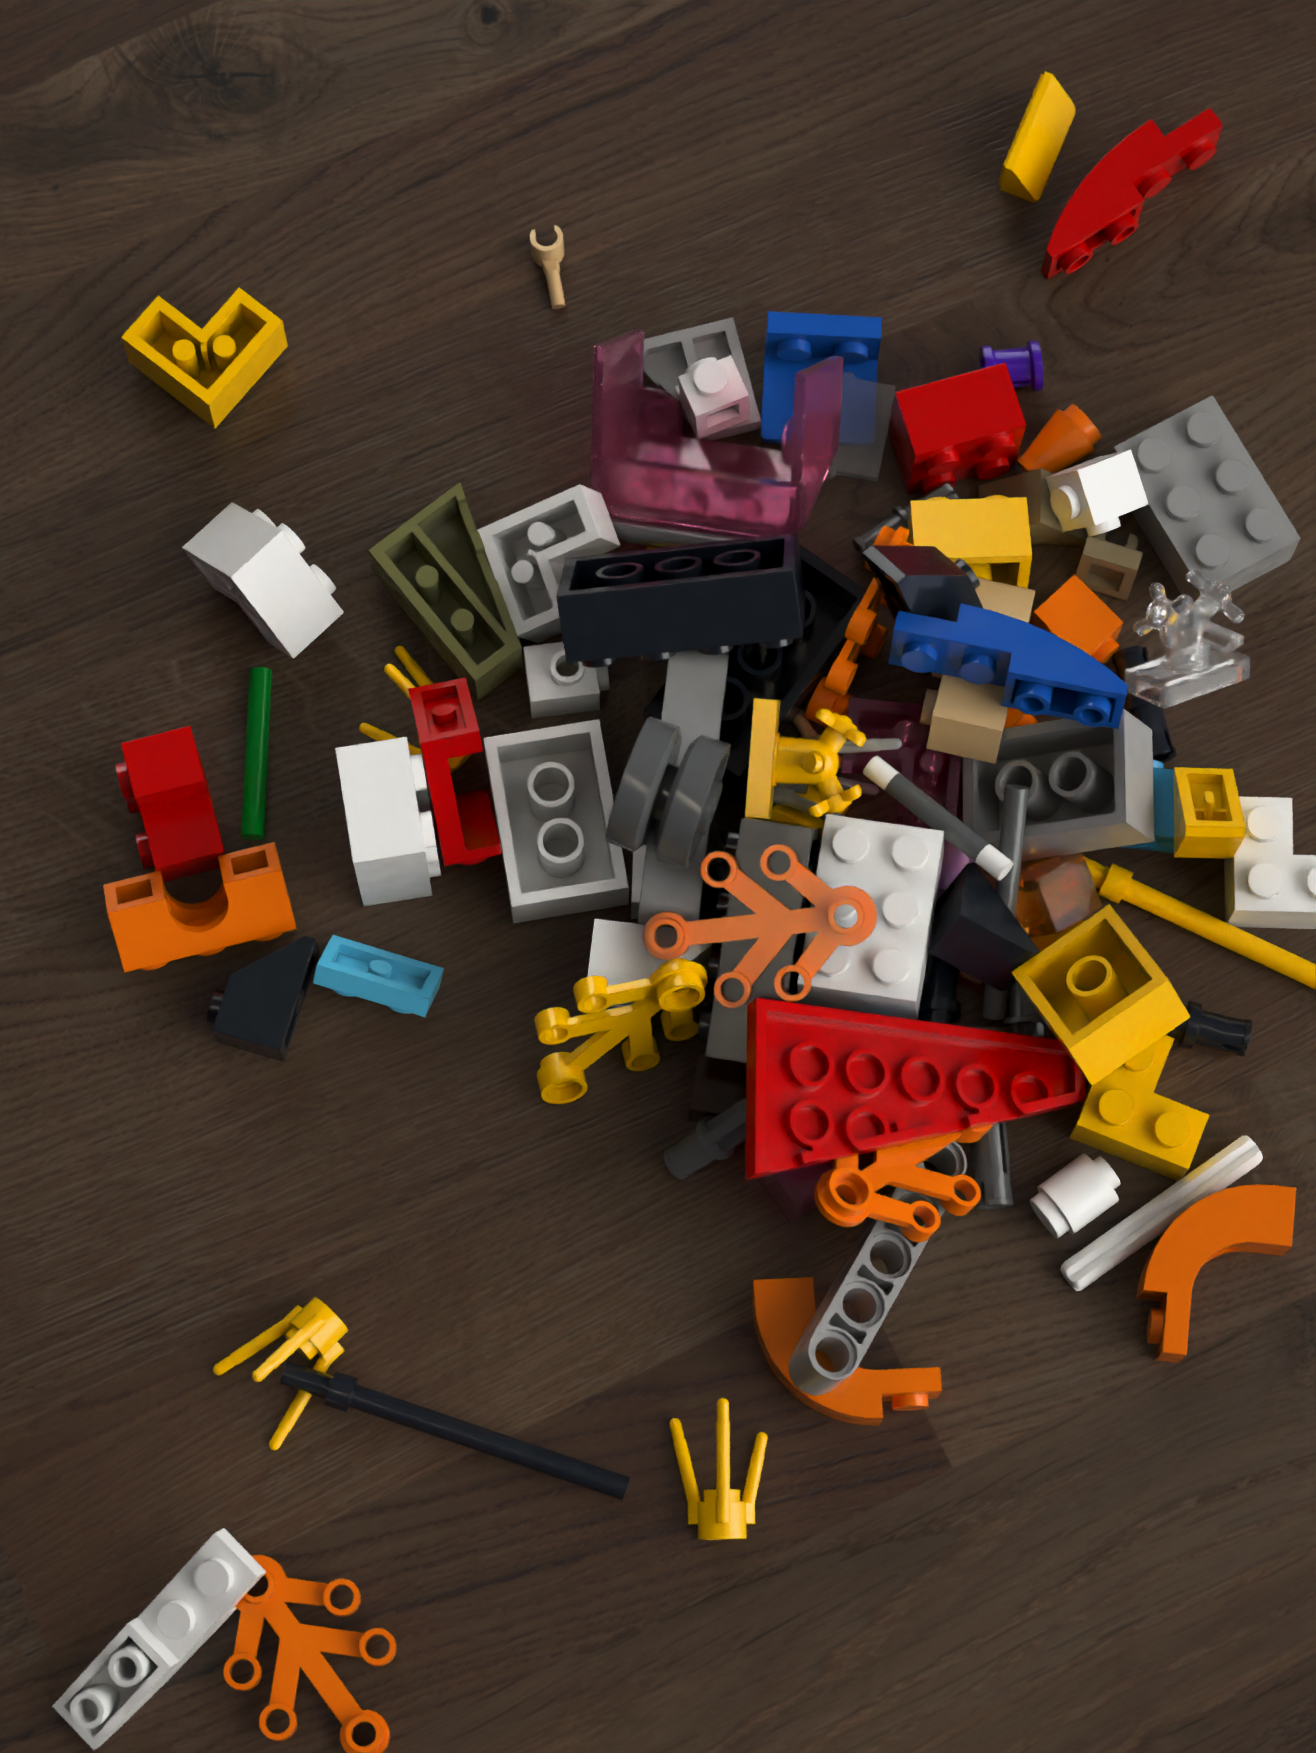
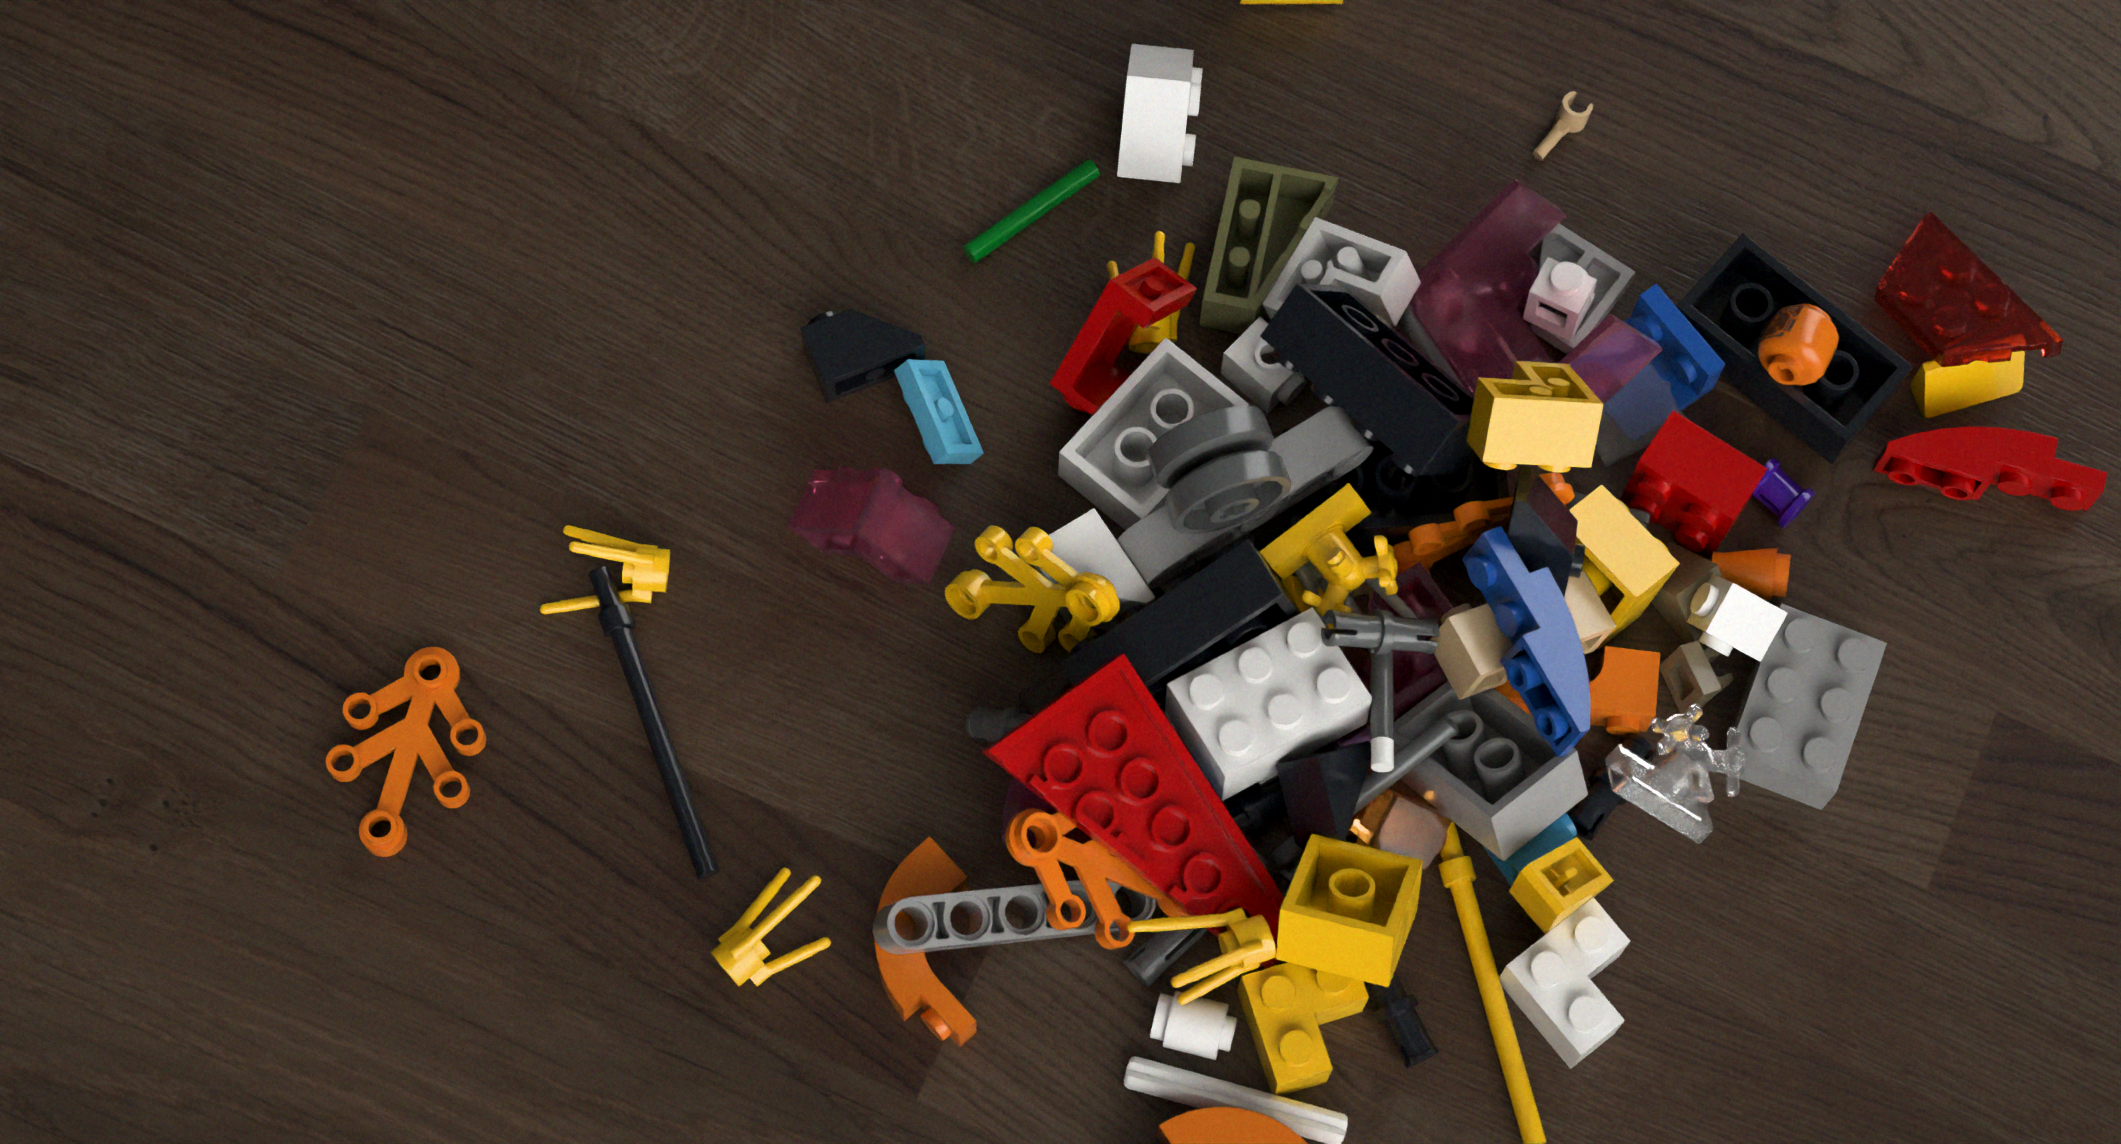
camera: 50 degrees right, 5 degrees down
(158, 929) = (845, 237): orange arch -> none
(159, 1639) = (337, 637): white slope -> none
(170, 789) = (948, 180): red brick -> none
(388, 820) = (1039, 315): white brick -> none
(435, 1108) = (873, 519): none -> clear pink brick
(771, 924) = (1190, 624): orange plant -> none
(837, 505) = (1535, 419): none -> yellow brick
(894, 779) = (1379, 632): none -> dark grey pin
(905, 253) = (1732, 313): none -> black brick
(920, 248) = (1798, 344): none -> orange head
(974, 94) = (1958, 303): none -> clear red wing
(1058, 1104) = (1242, 946): none -> yellow plant

